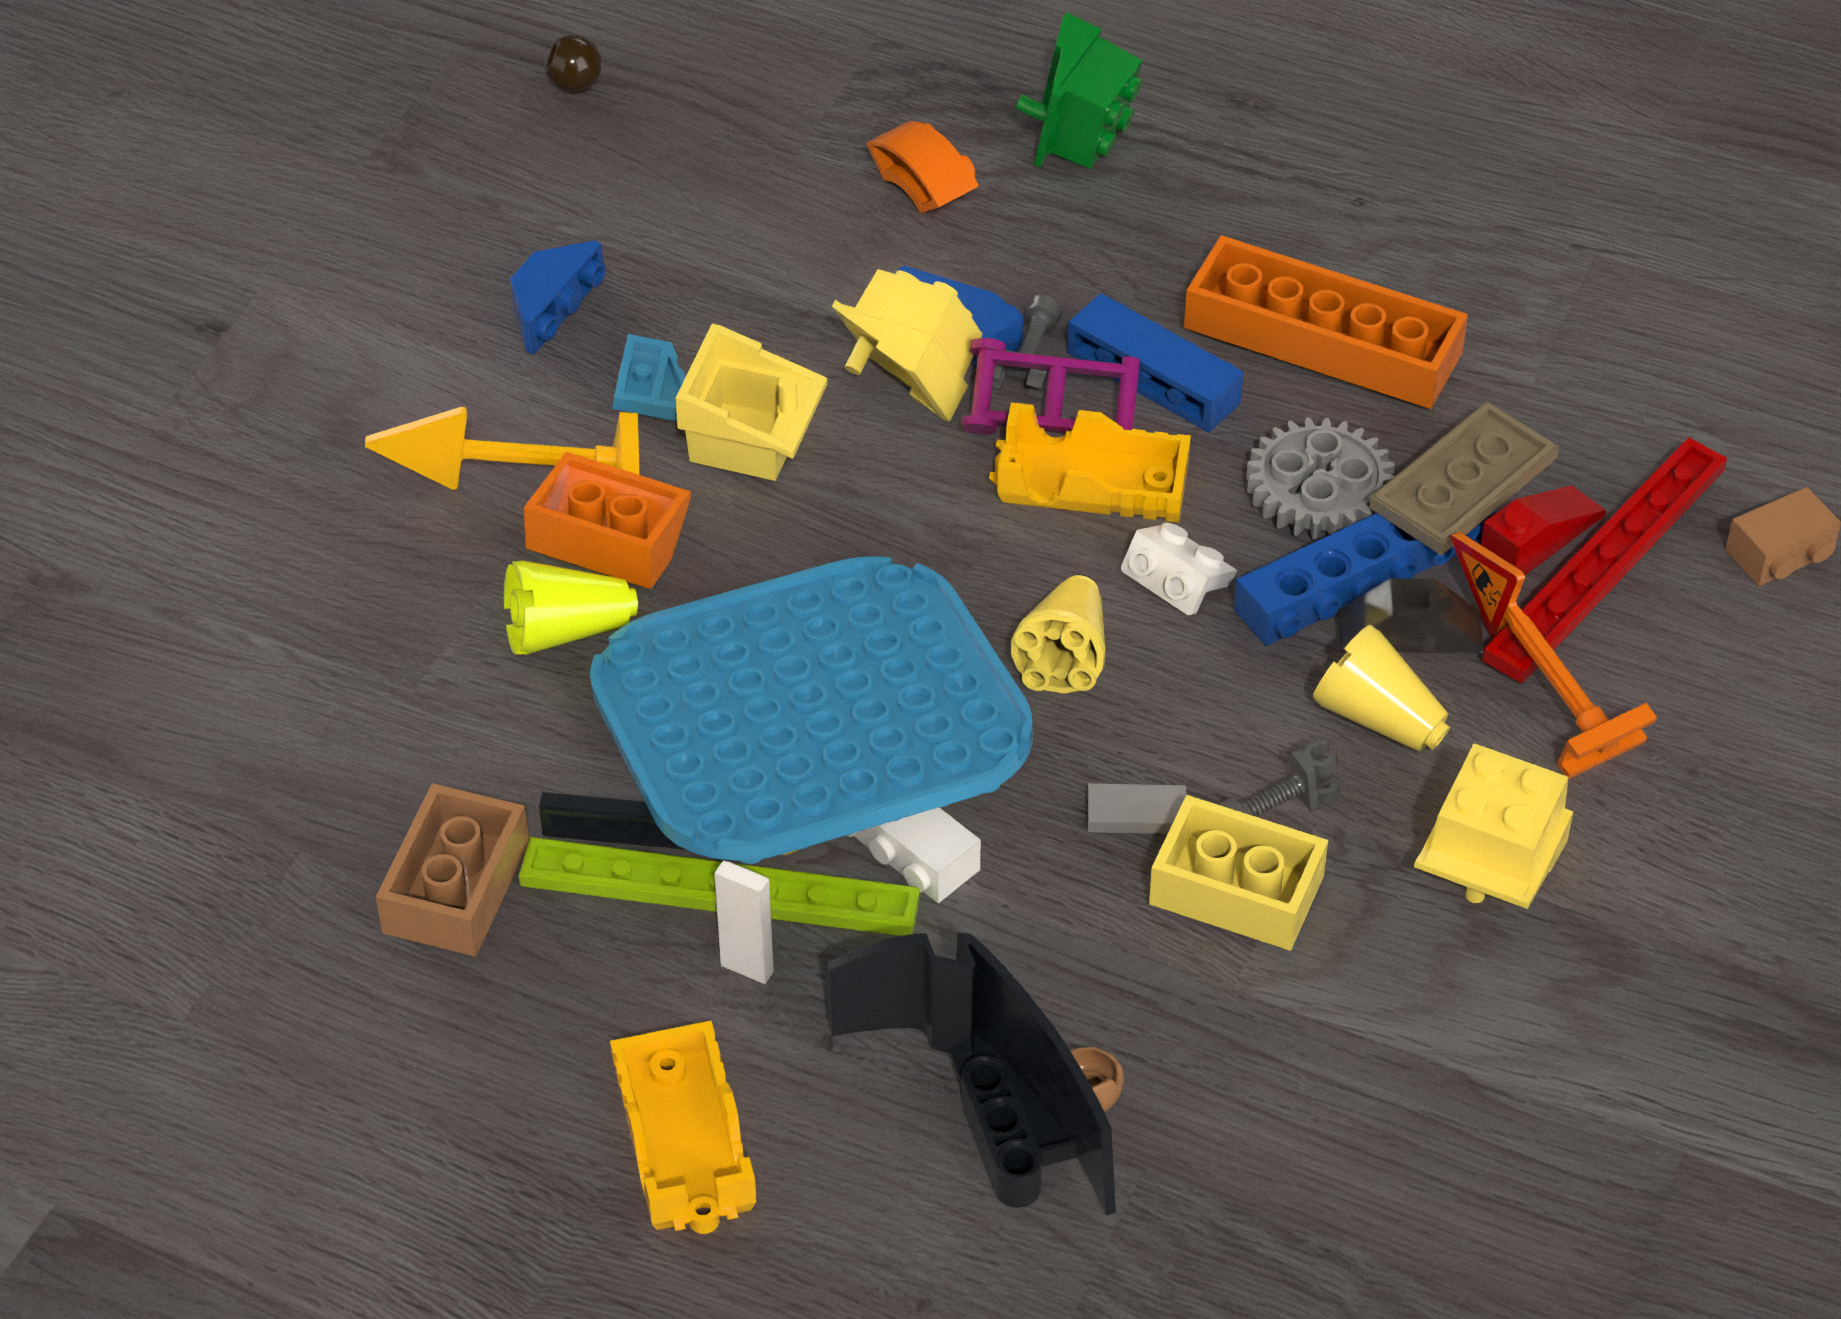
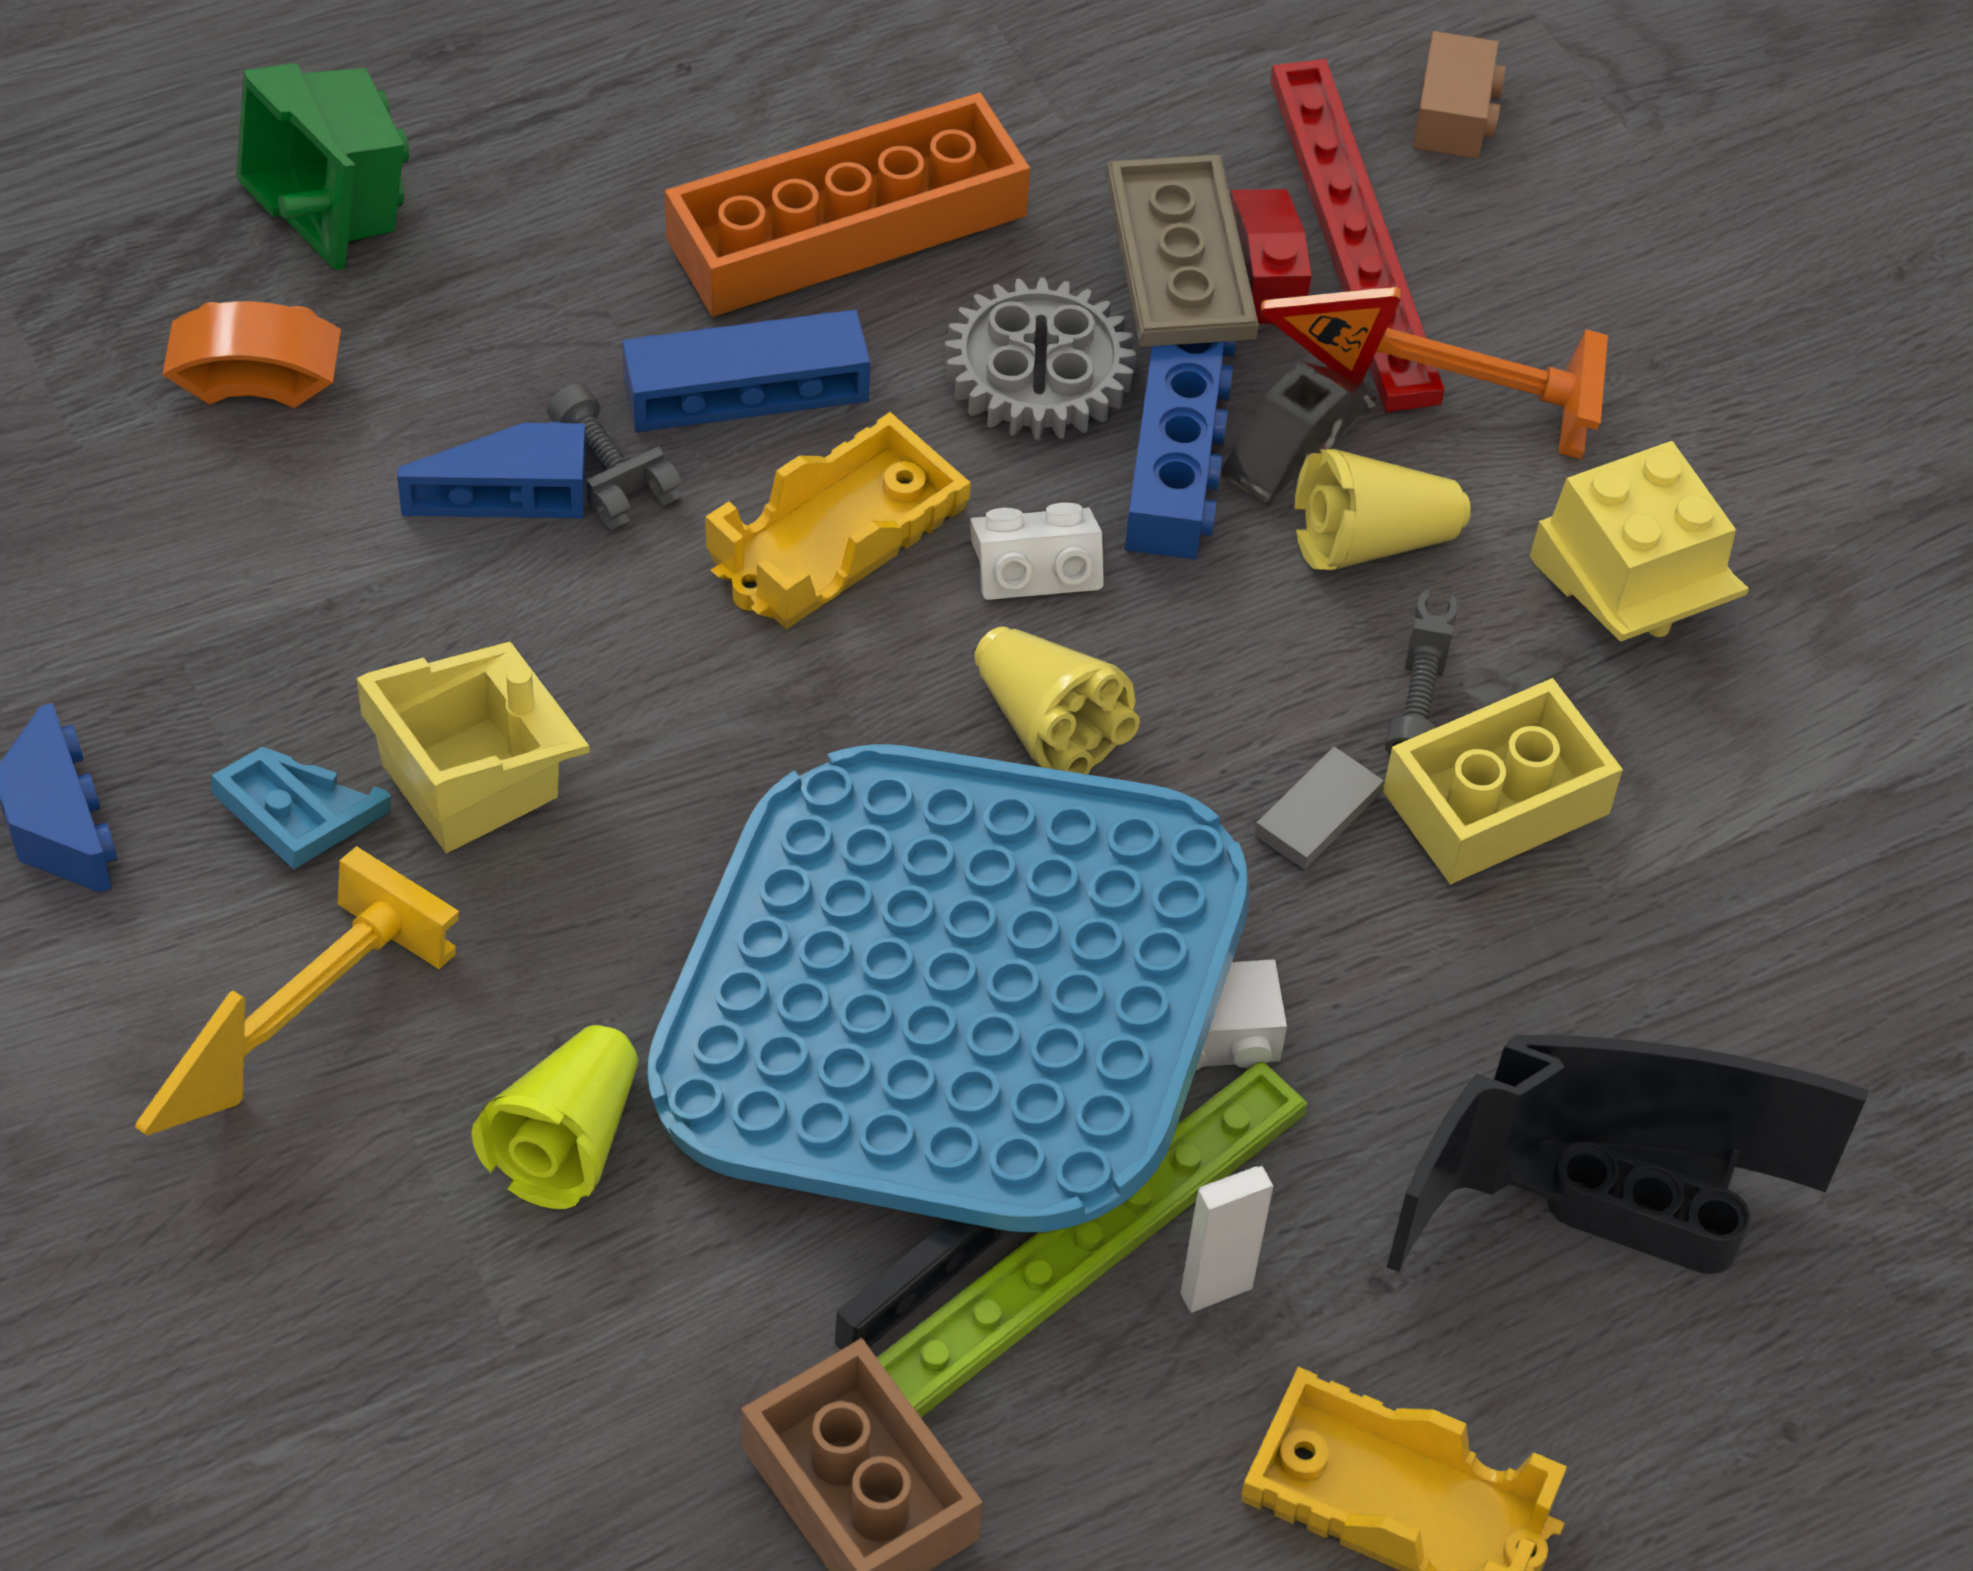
camera: 55 degrees left, 5 degrees up
(606, 519) = (481, 982): orange slope -> none
(914, 334) = (530, 531): light yellow piece -> none
(992, 353) = (618, 480): magenta piece -> none

